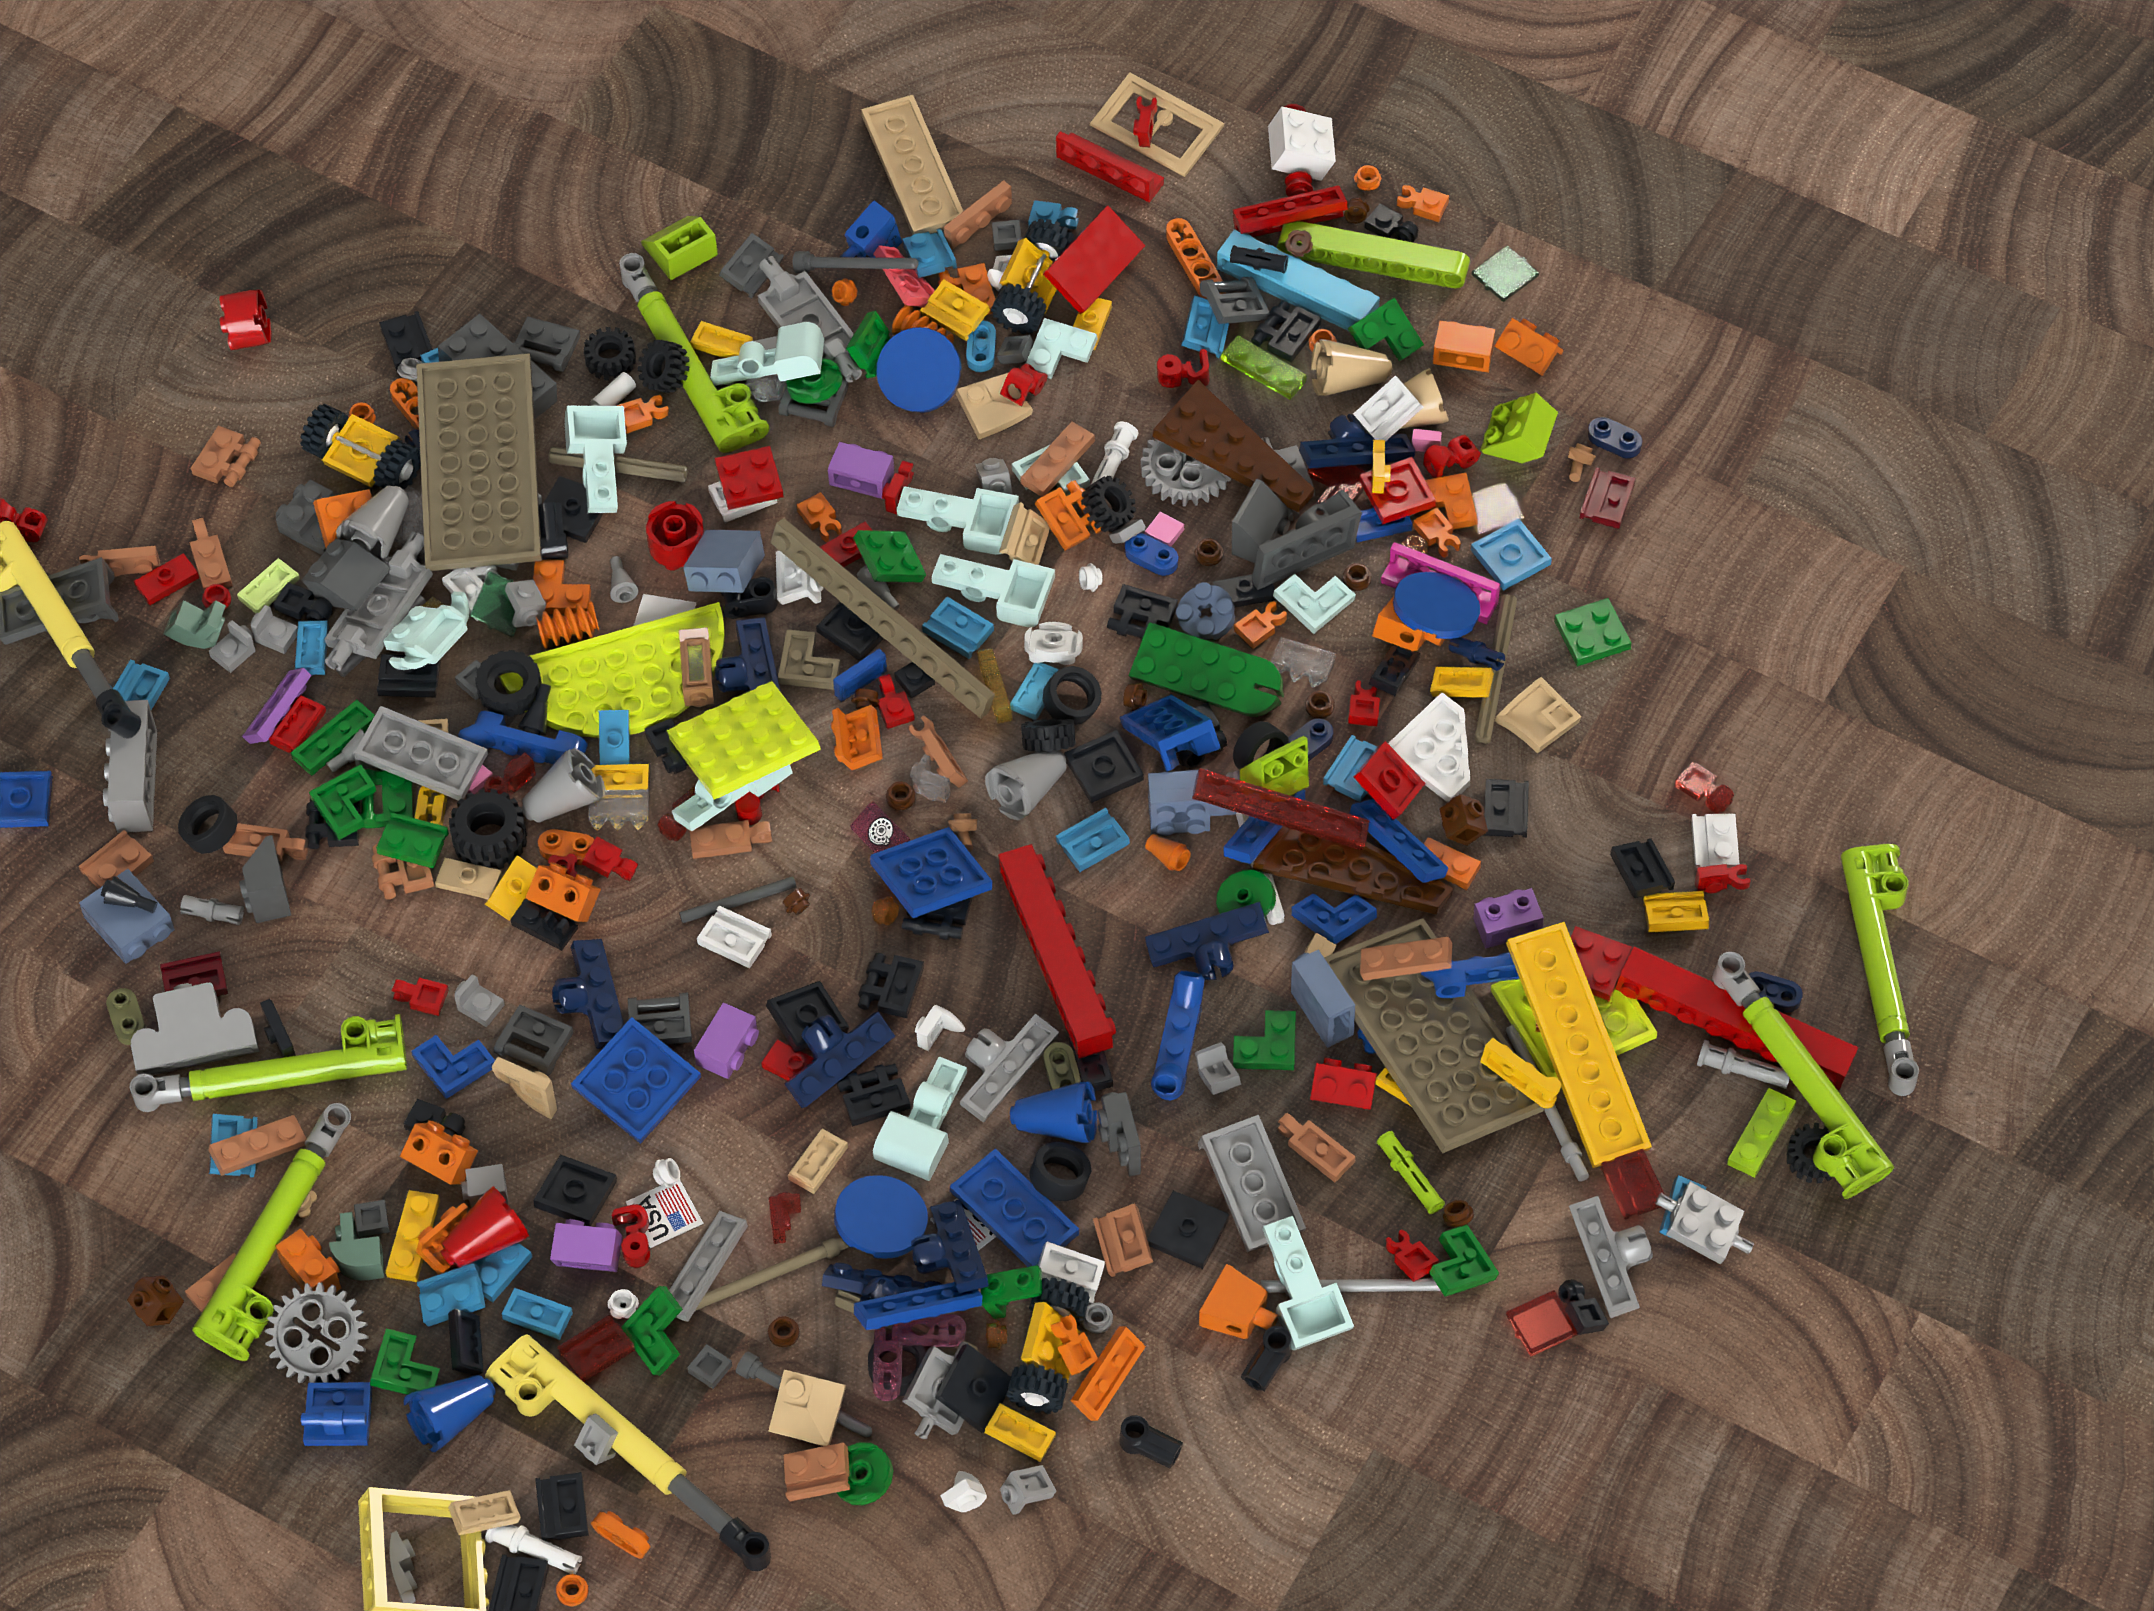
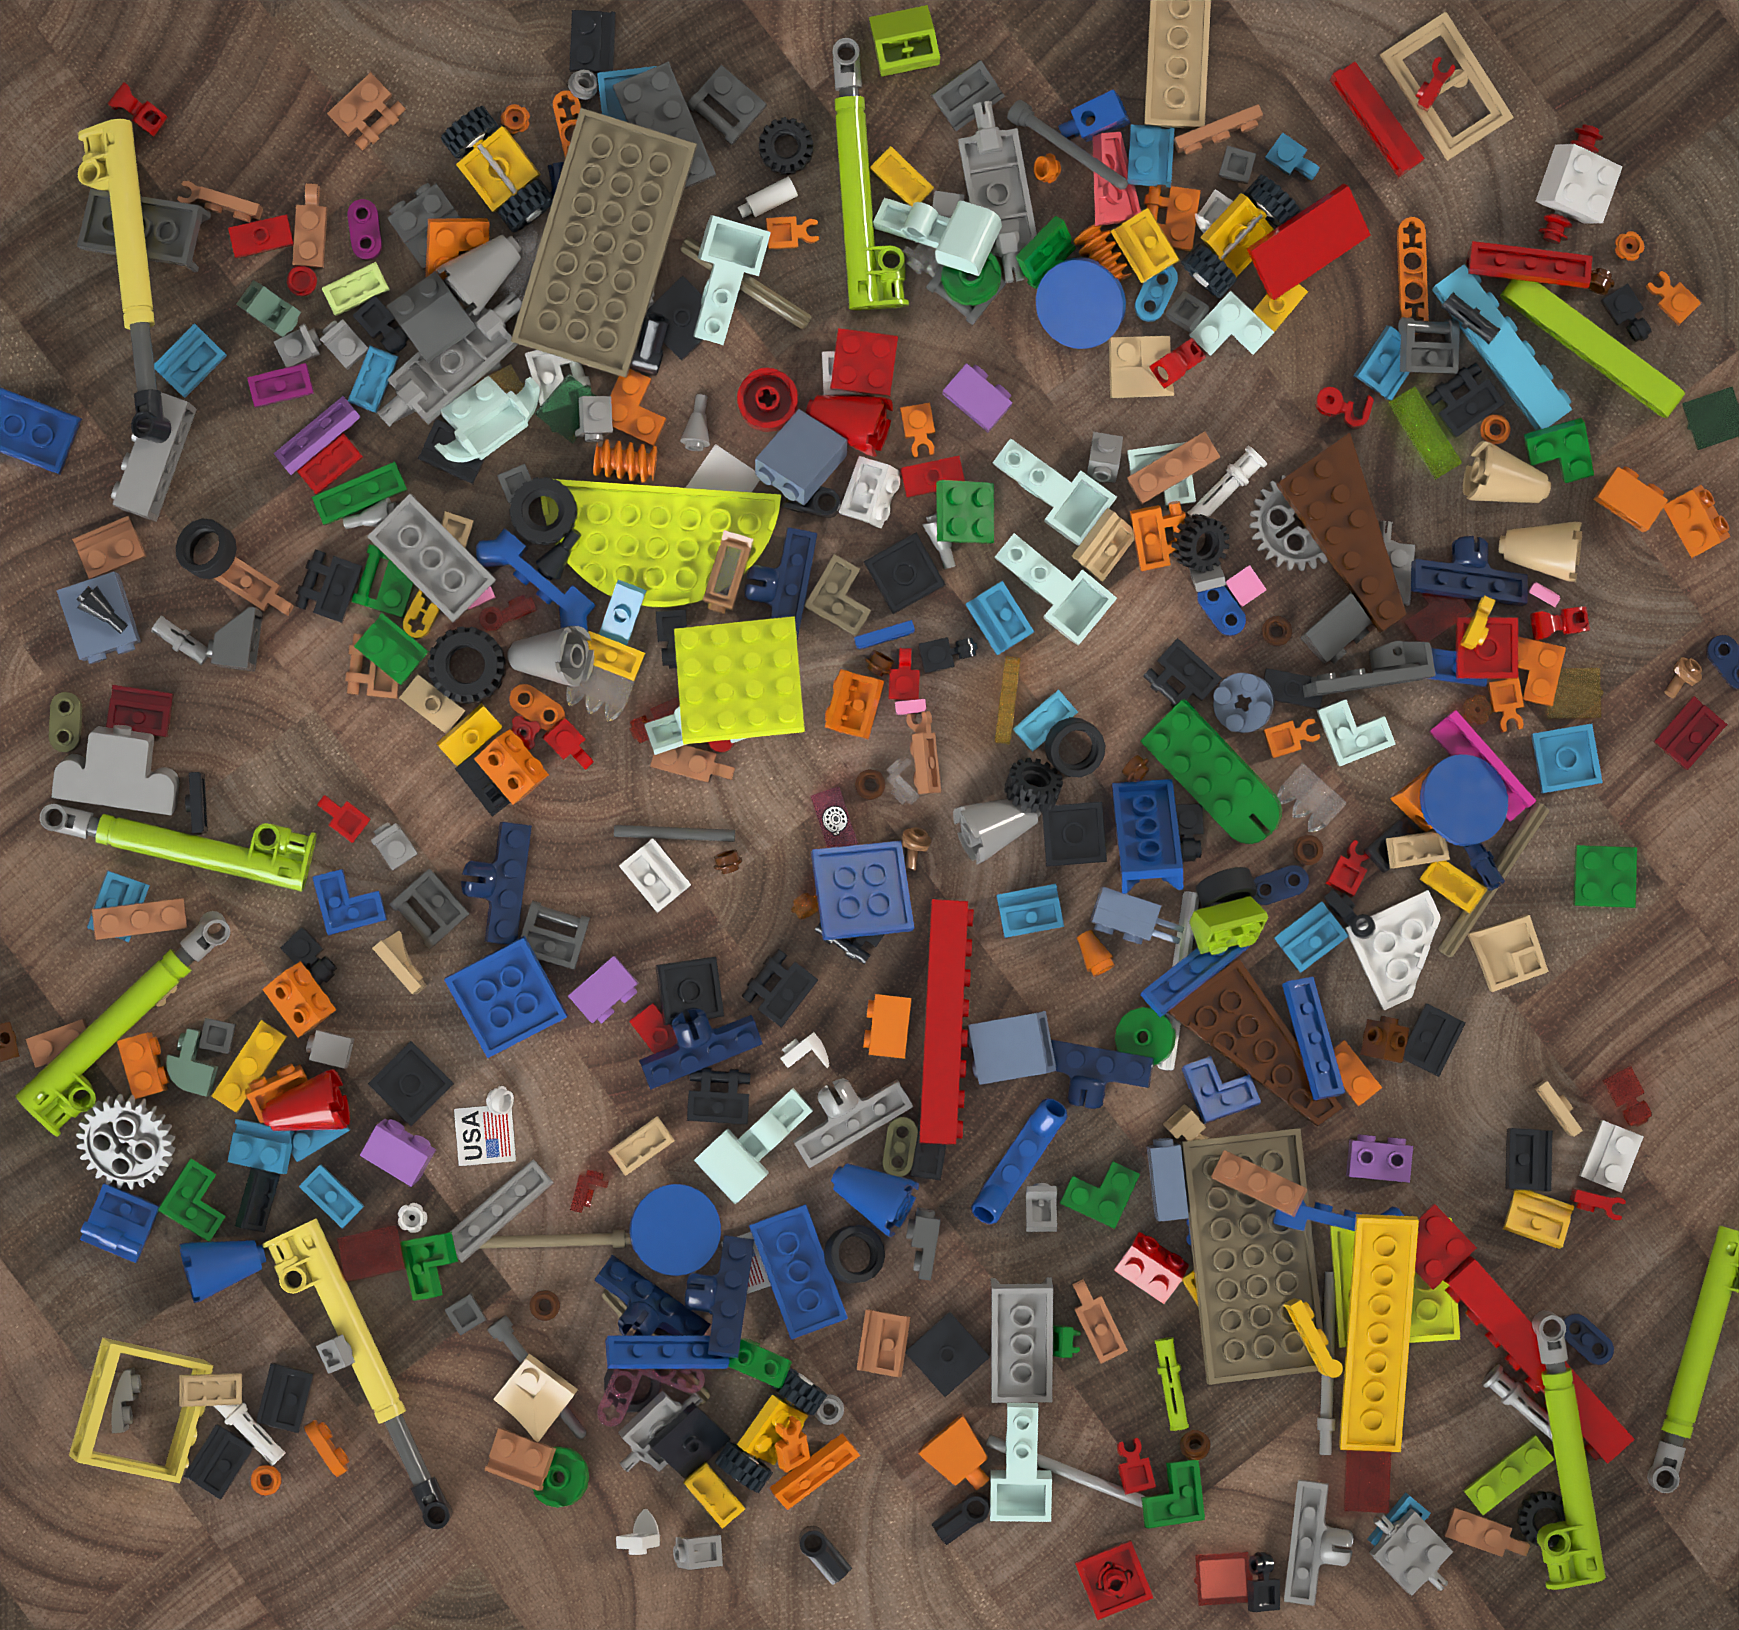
camera: 20 degrees right, 30 degrees up
(228, 681) = (280, 385): none -> magenta plate
(258, 540) = (365, 229): none -> magenta plate
(337, 798) = (334, 574): green plate -> none
(635, 1244) = (445, 1166): red leg -> none
(674, 368) = (841, 197): black tyre -> none
(757, 515) = (855, 418): none -> red cone
(882, 618) = (921, 579): dark tan plate -> none
(893, 490) = (1000, 434): red plate -> none
(908, 717) = (910, 706): none -> bright pink tile
(996, 1335) = (731, 1389): clear orange plate -> none
(1006, 973) = (889, 1026): none -> orange brick
(1053, 643) = (1071, 690): white plate -> none
(1072, 1266) = (820, 1359): white plate -> none
(1090, 577) = (1150, 613): white plate -> none
(1126, 946) = (1011, 1048): none -> sand blue brick
(1280, 809) = (1212, 974): clear red plate -> none
(1293, 1171) = (1063, 1341): none -> green tile
(1294, 237) = (1518, 318): reddish brown plate -> none
(1357, 570) = (1416, 717): reddish brown plate -> none
(1375, 732) = (1343, 908): none -> black plate
(1388, 410) = (1517, 558): white plate -> none
(1389, 780) = (1333, 972): red plate -> none
(1415, 660) = (1417, 849): none -> tan plate
(1445, 1351) = (1134, 1587): none -> red plate
(1520, 429) = (1640, 618): lime slope -> none
(1647, 818) = (1559, 1107): none -> tan plate
(1766, 1189) = (1483, 1533): none -> nougat plate

